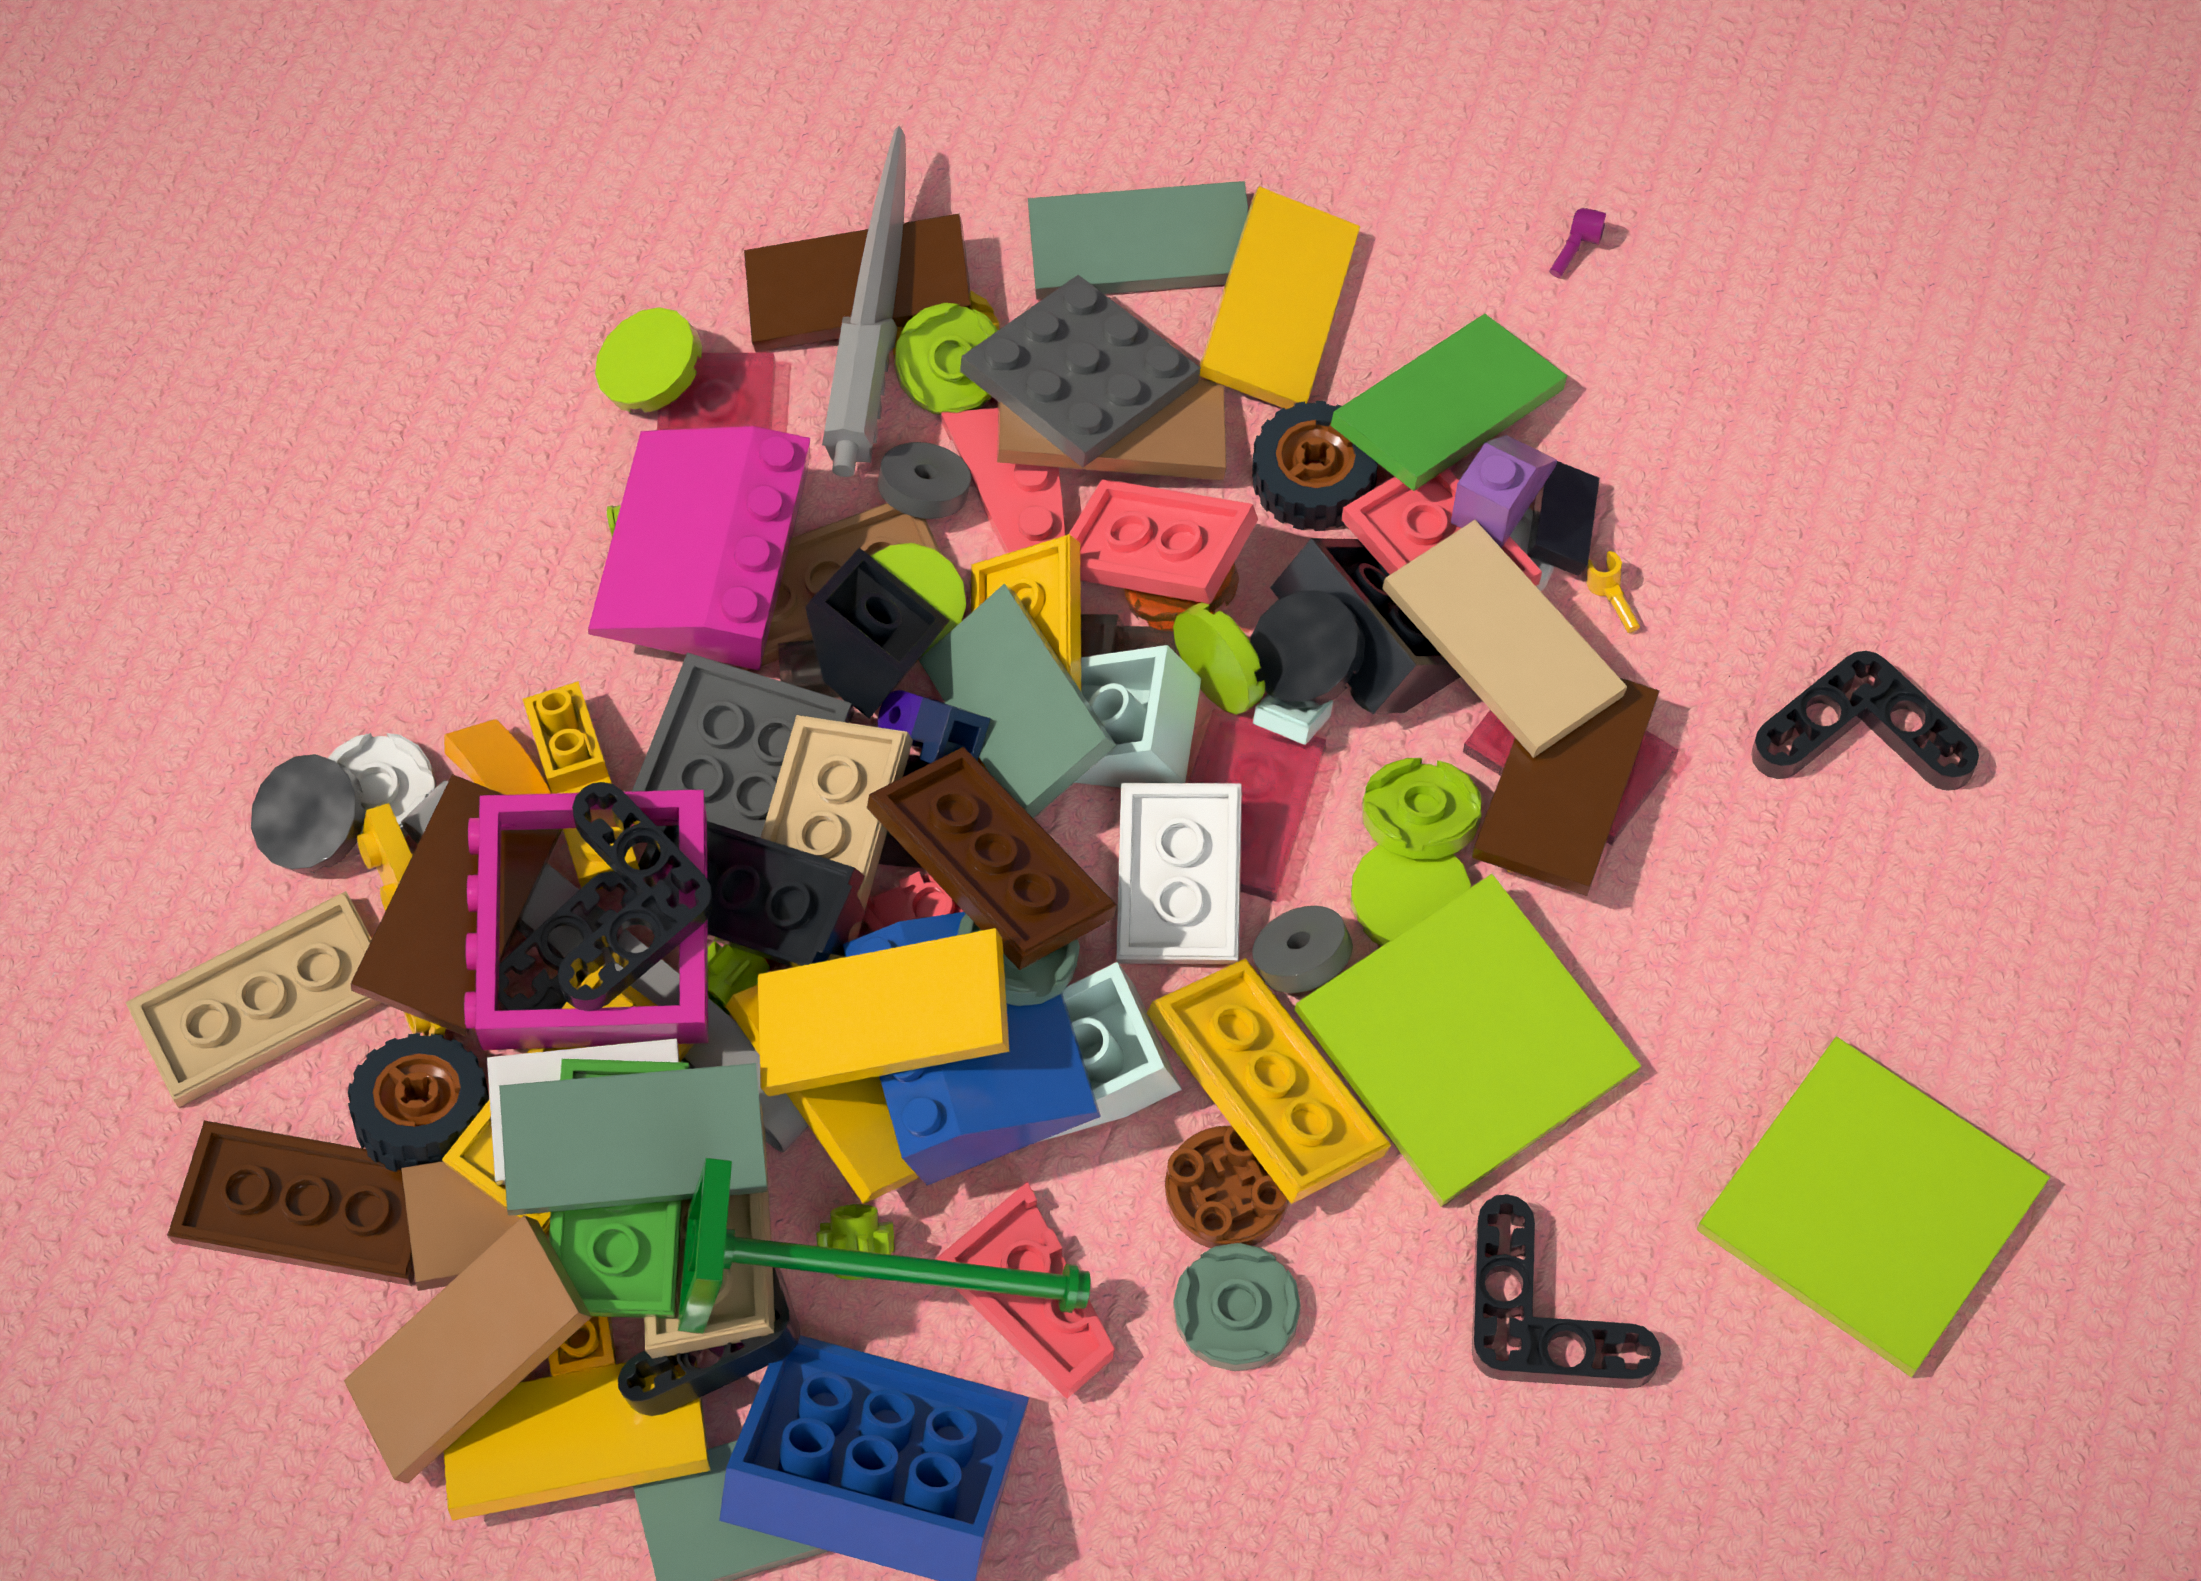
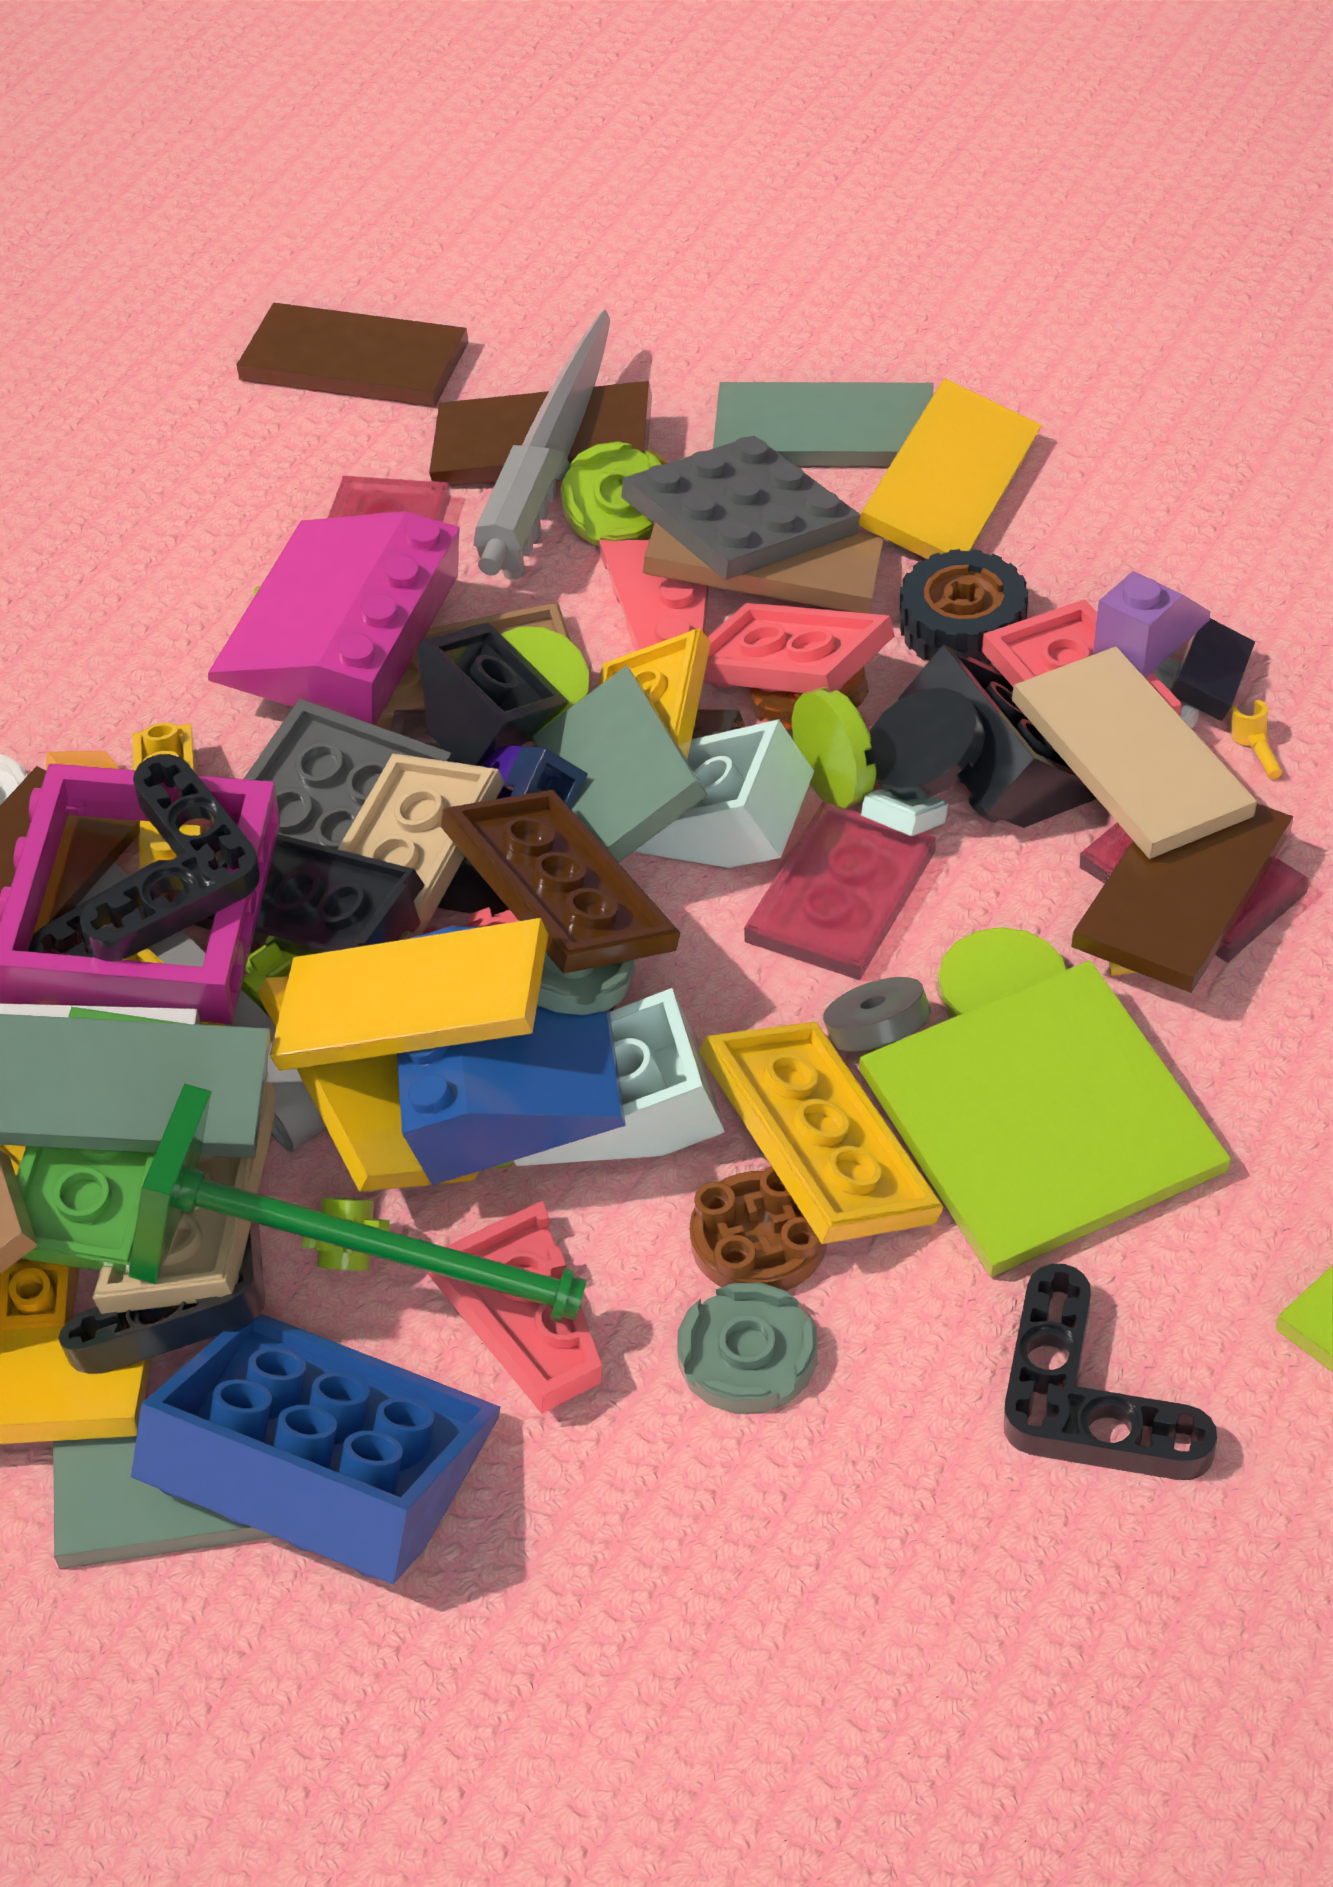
camera: 10 degrees right, 15 degrees down
(638, 188) = (353, 354): none -> reddish brown tile
(648, 360) = (326, 476): lime tile -> none
(924, 480) = (569, 590): dark grey piece -> none
(1179, 873) = (759, 936): white tile -> none
(1421, 808) = (1024, 904): lime tile -> none
(1448, 401) = (1078, 564): bright green tile -> none
(1587, 227) = (1267, 441): magenta hand -> none

